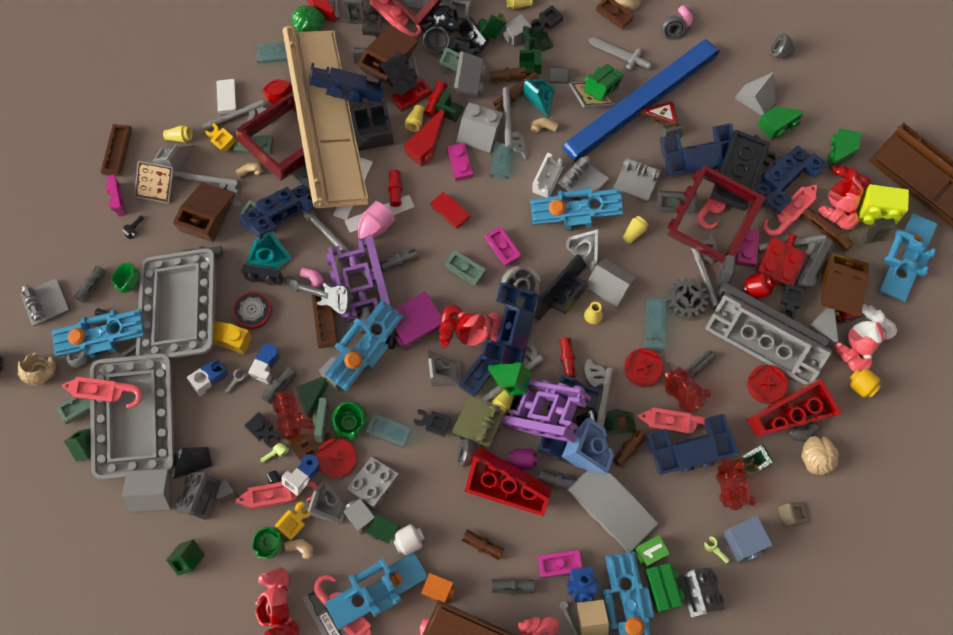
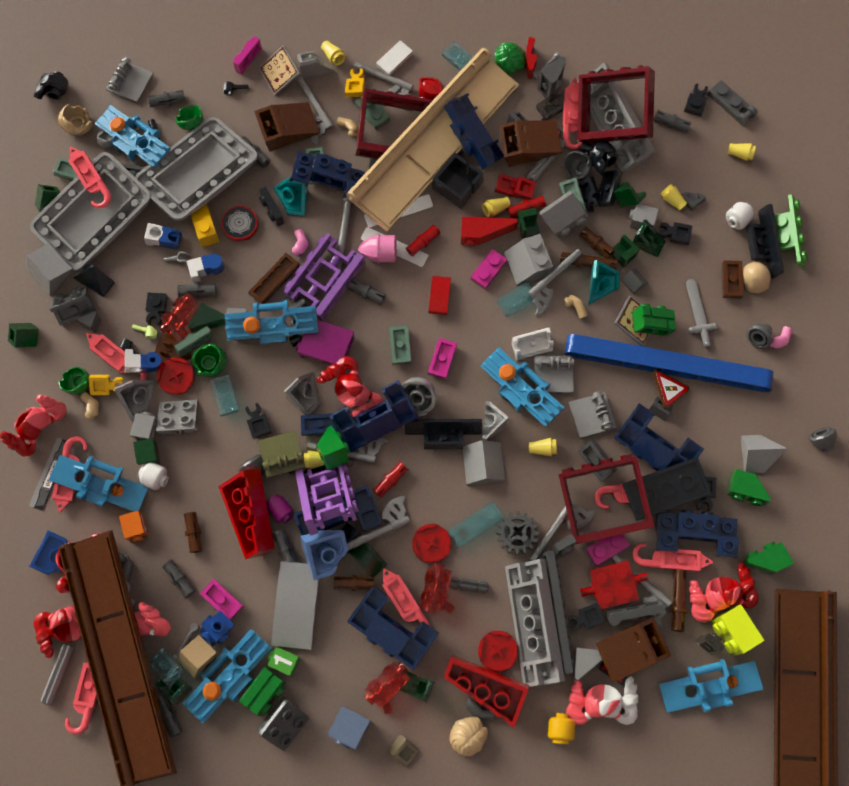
camera: 50 degrees right, 5 degrees up
(116, 150) = (283, 23): reddish brown plate -> none
(335, 297) = (290, 269): piece -> none
(399, 73) = (519, 162): black bracket -> none
(593, 313) = (443, 475): light yellow cone -> none
(716, 550) = (326, 711): yellowish green hand -> none
(759, 285) = (576, 581): red head -> none

